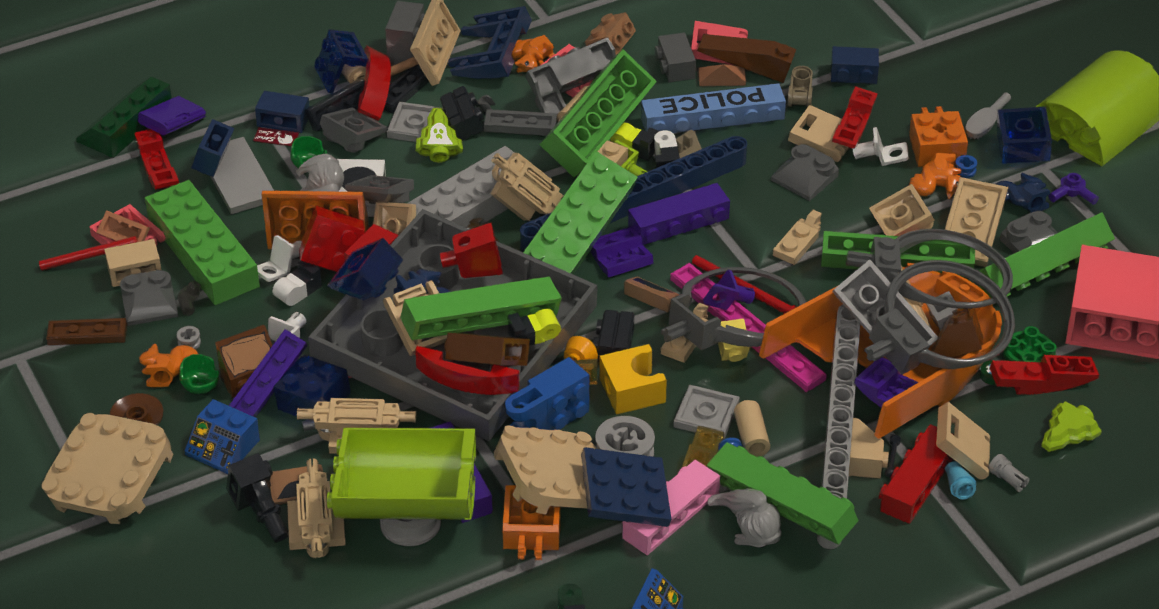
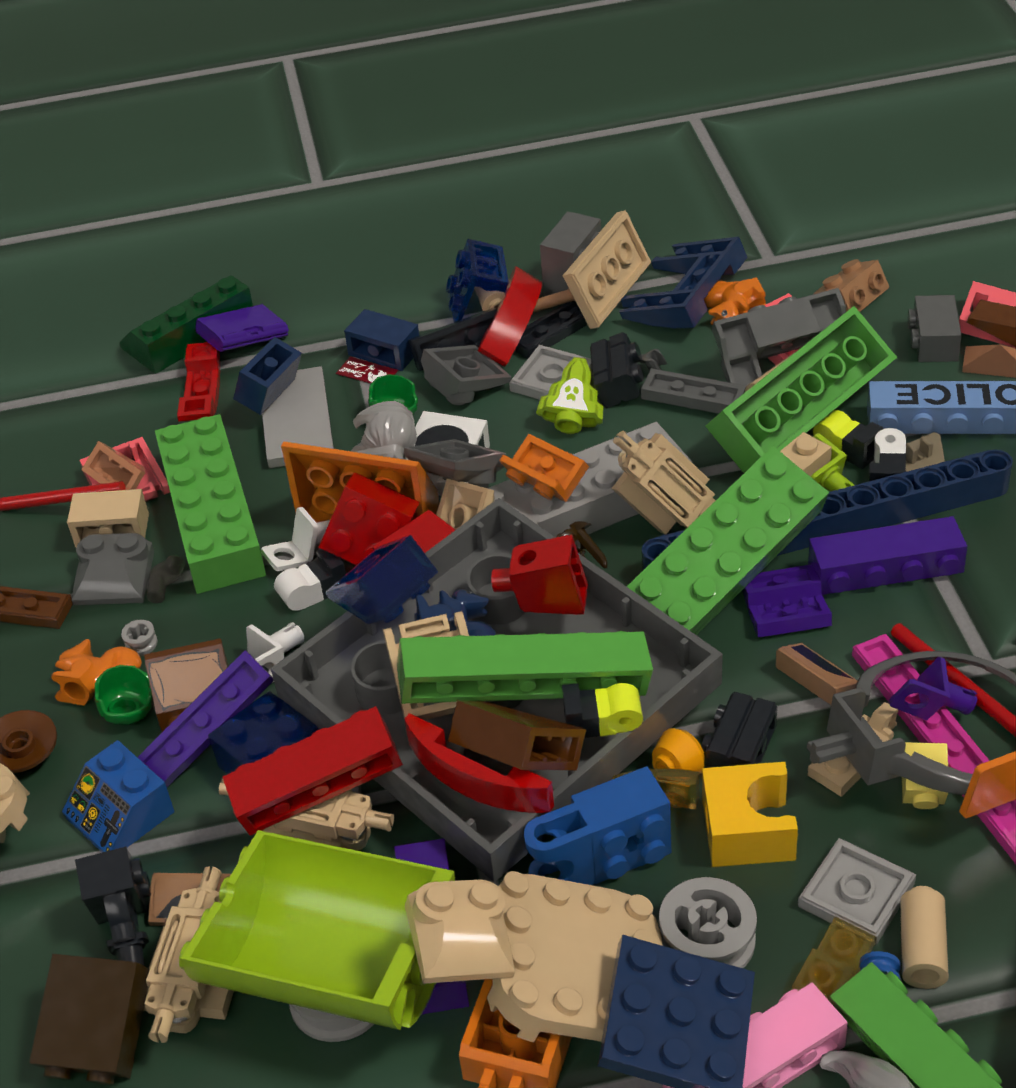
camera: 20 degrees right, 0 degrees up
(266, 554) = (90, 1018): none -> dark brown brick
(361, 390) = (311, 770): none -> red brick
(443, 185) = (545, 467): none -> orange bracket
(492, 456) = (460, 931): none -> tan slope

